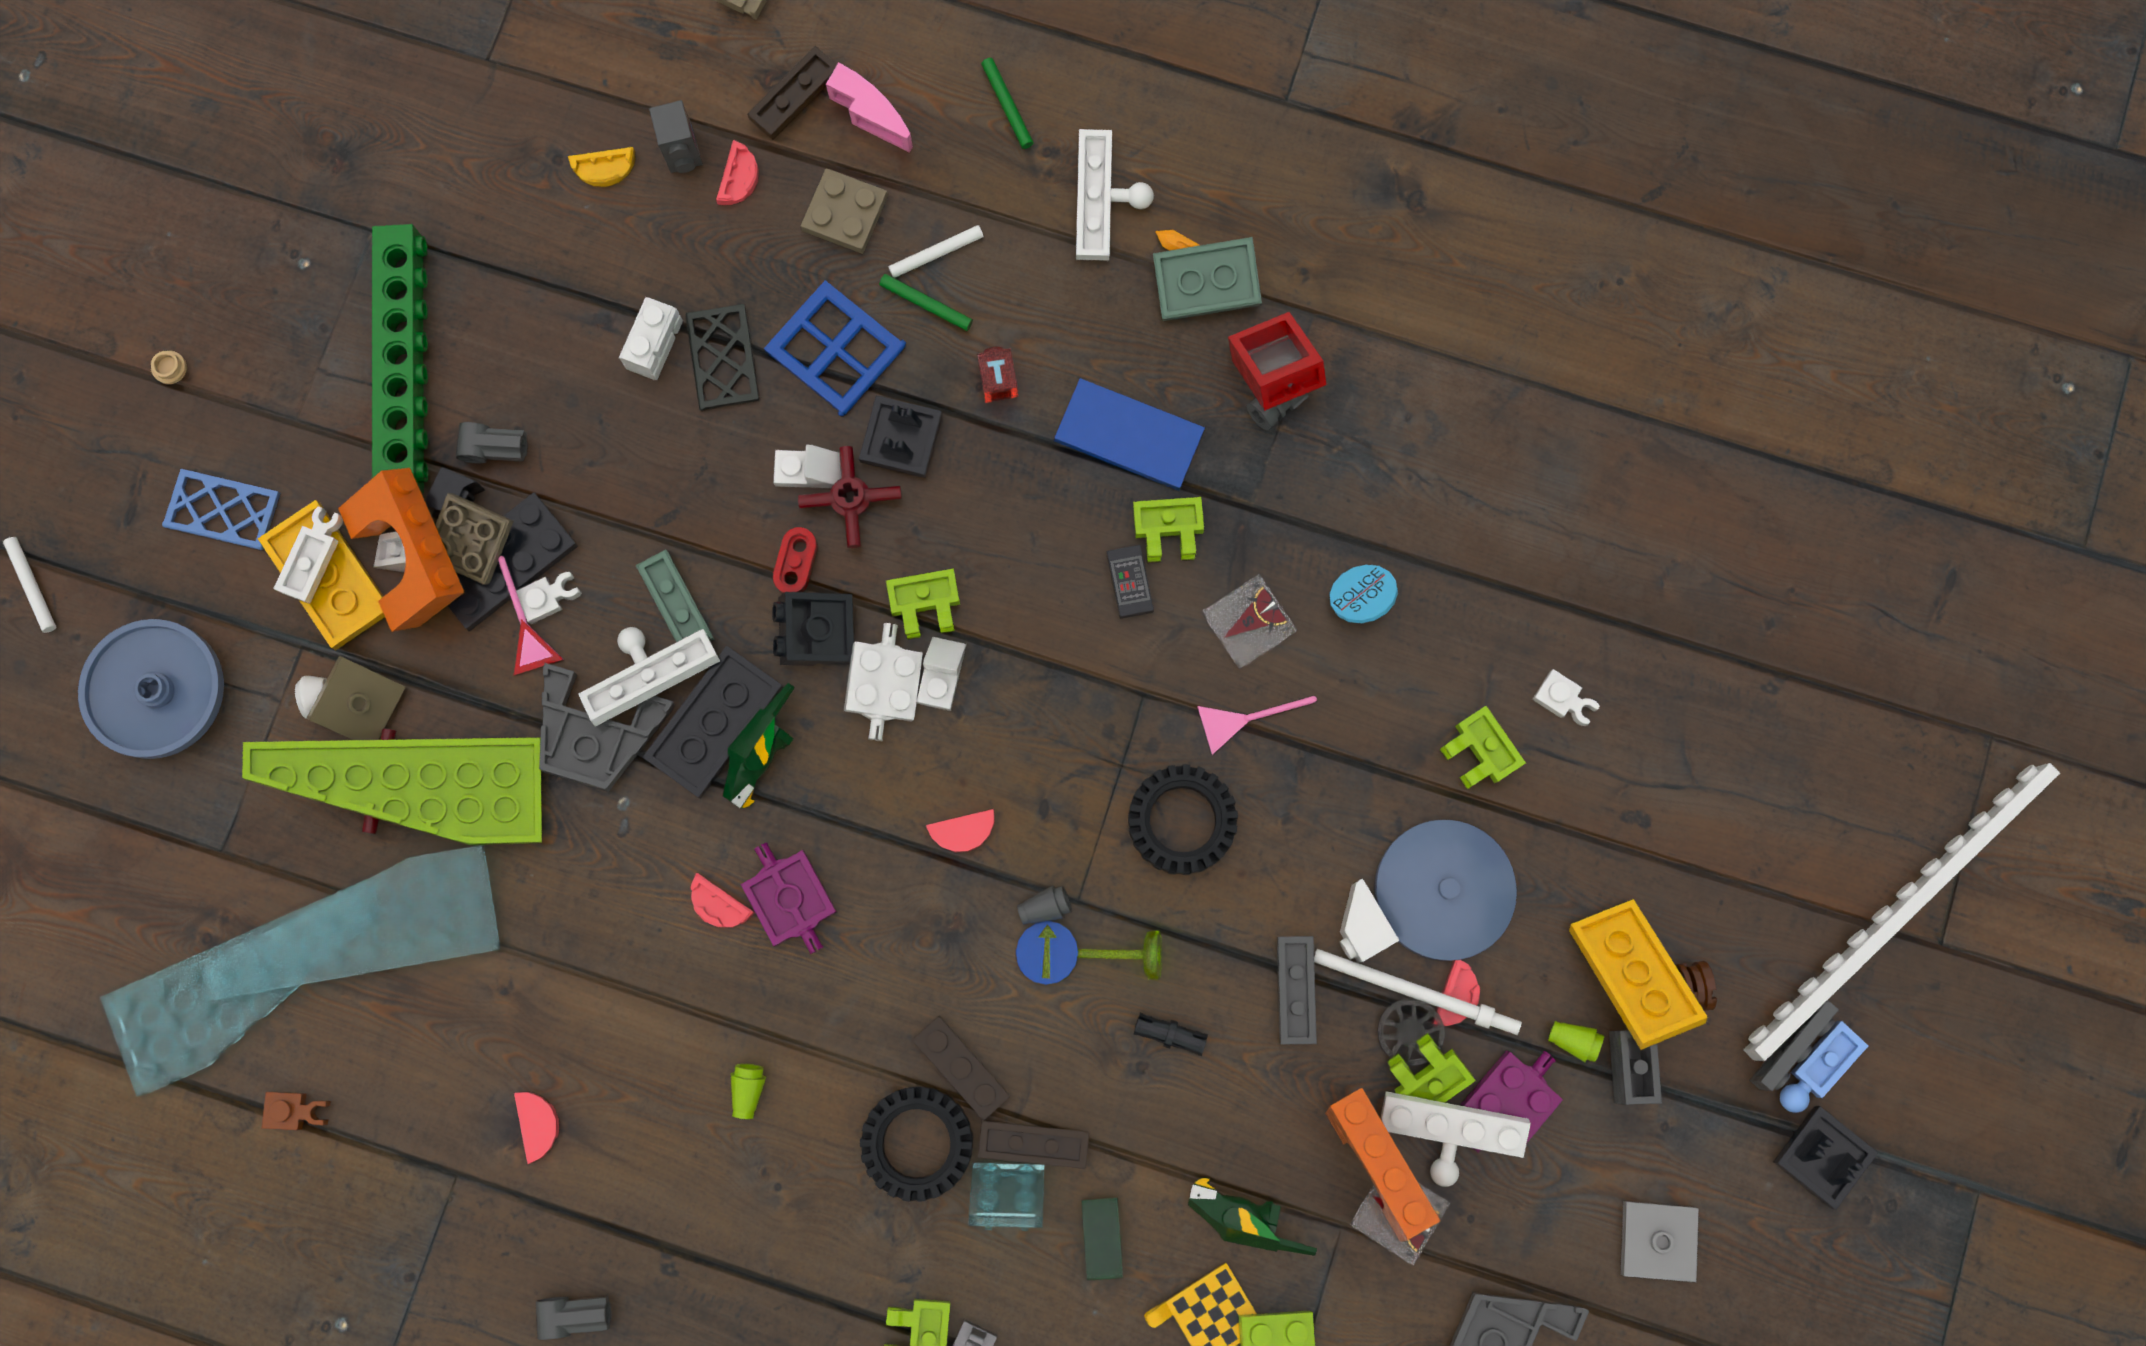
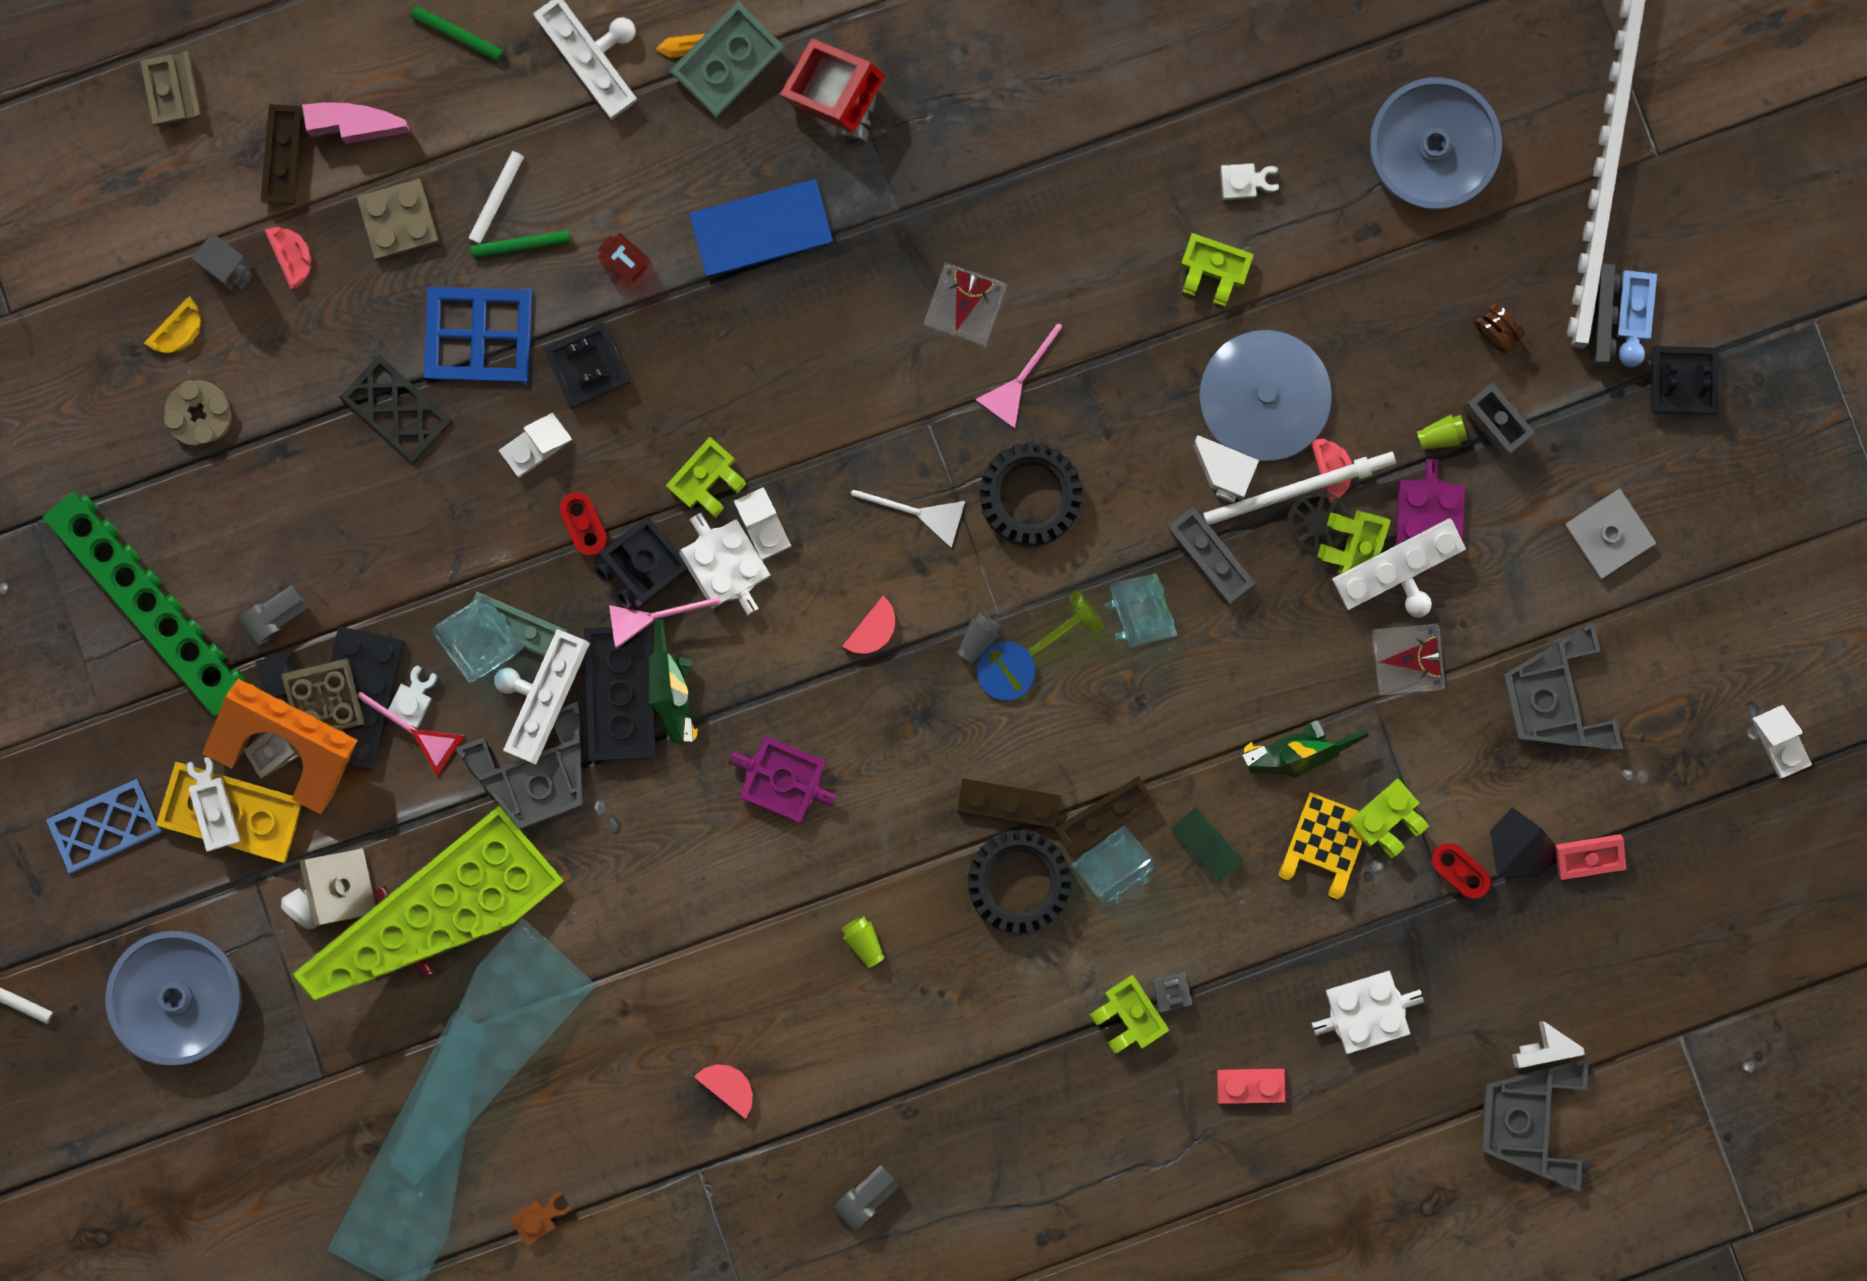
camera: 40 degrees left, 5 degrees up
(568, 223) = (215, 407): none -> dark tan plate
(631, 586) = (477, 639): none -> clear light blue plate
(651, 338) = (332, 437): white brick -> none
(716, 905) = (732, 827): coral tile -> none
(767, 669) = (629, 622): none -> bright pink piece
(862, 497) = (586, 455): dark red bar -> none
(1091, 783) = (940, 519): none -> white piece
(1130, 581) = (850, 343): black tile -> none
(1169, 518) = (842, 272): lime plate -> none
(1170, 1034) = (1143, 659): black pin -> none
(1200, 991) = (1142, 610): none -> clear light blue plate
(1363, 593) = (1035, 217): medium azure piece -> none
(1401, 1194) = (1402, 645): orange arch -> none
(1638, 974) = (1449, 350): yellow plate -> none
(1754, 787) = (1435, 143): none -> sand blue dish

